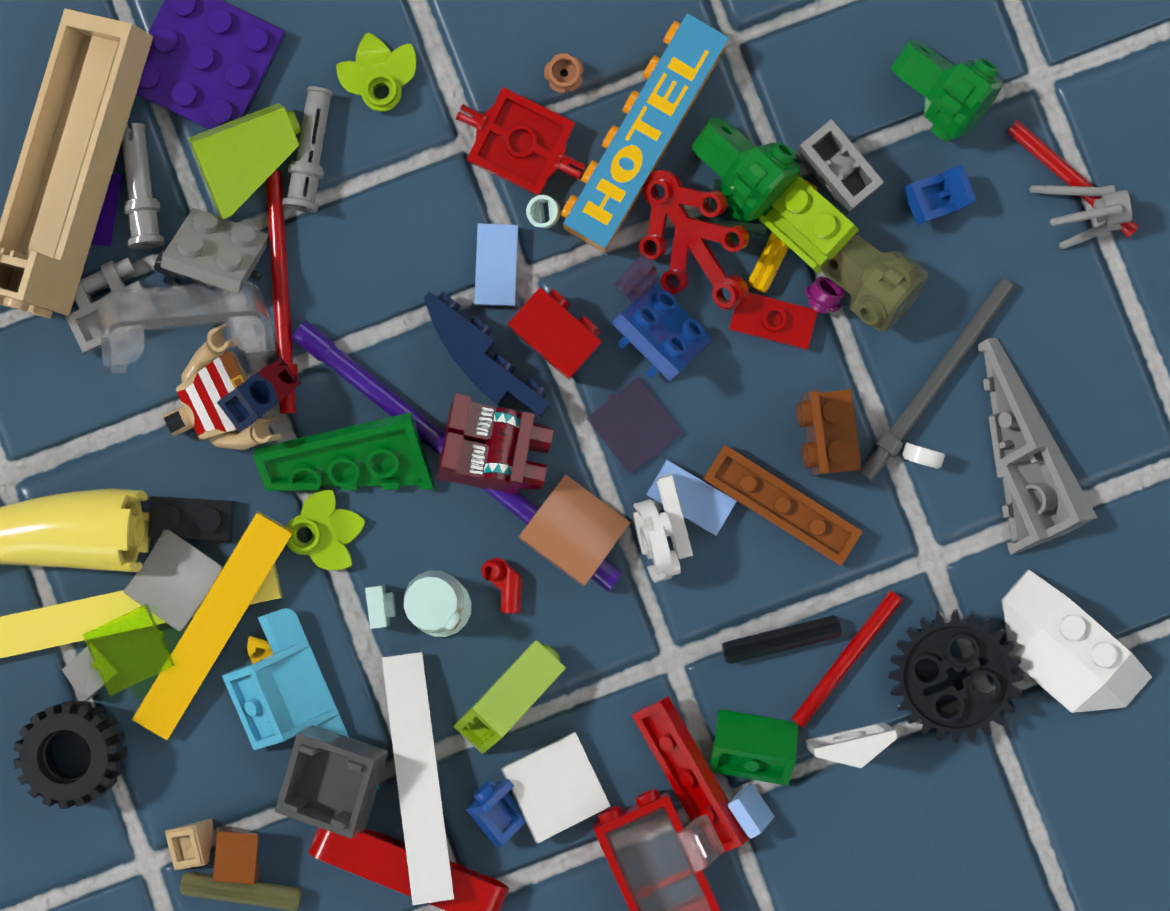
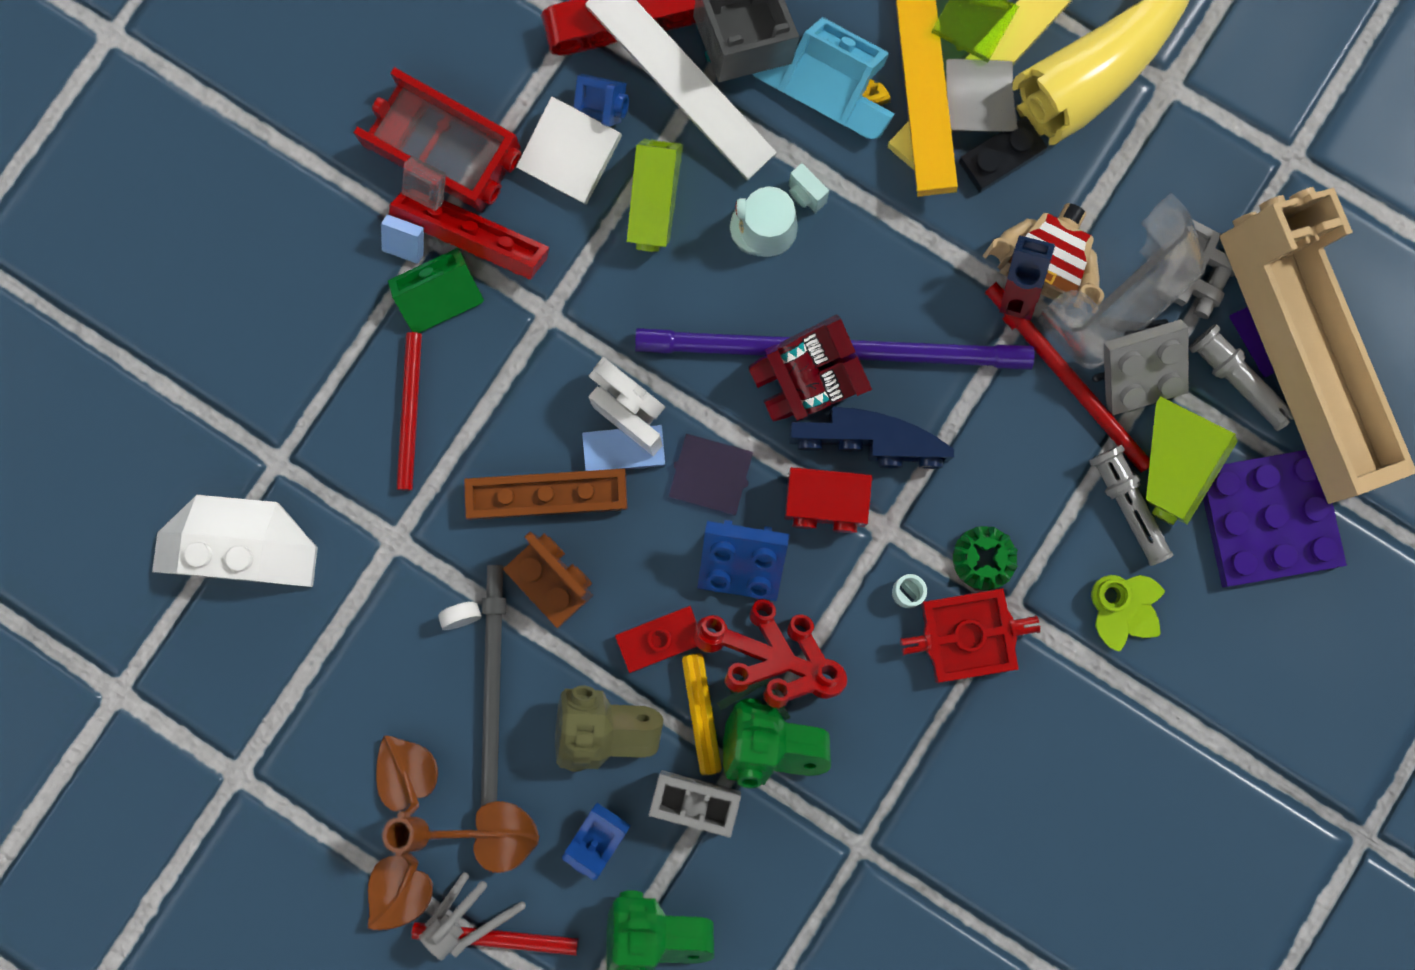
camera: 150 degrees right, 5 degrees down
(330, 530) = (888, 221): lime plate -> none
(364, 454) = (906, 297): green wing -> none
(476, 206) = (966, 558): none -> green gear
(496, 265) = (914, 522): light blue tile -> none
(506, 580) = (719, 281): red arm -> none
(564, 62) = (985, 726): nougat plate -> none
(574, 530) = (698, 355): nougat slope -> none
(637, 279) = (793, 586): clear purple plate -> none
(645, 132) = (875, 718): dark azure brick -> none
(781, 639) = (472, 389): black axle -> none
(809, 224) = (686, 735): lime plate -> none
(824, 295) = (632, 688): magenta plate -> none
(853, 746) = (355, 341): white slope -> none
(975, 708) = (277, 444): black gear -> none
(1037, 481) = (352, 663): light grey wedge -> none
(1124, 276) = (395, 887): none -> dark orange plant

